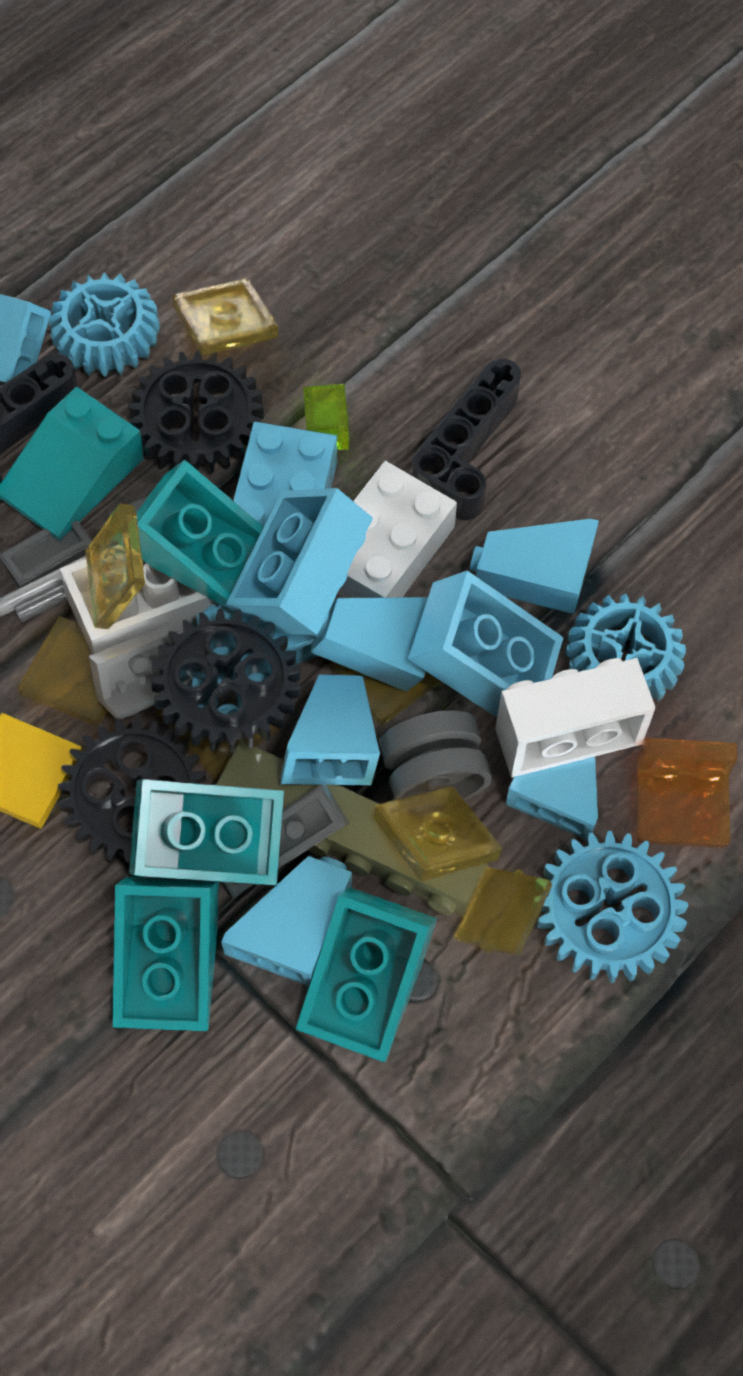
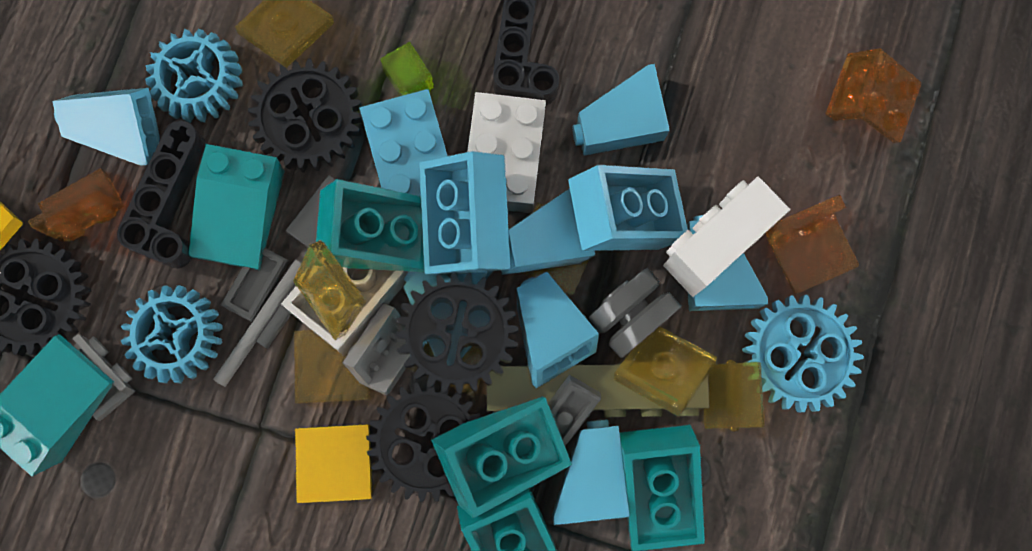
camera: 30 degrees left, 15 degrees up
(662, 662) = (718, 127): medium azure gear -> none

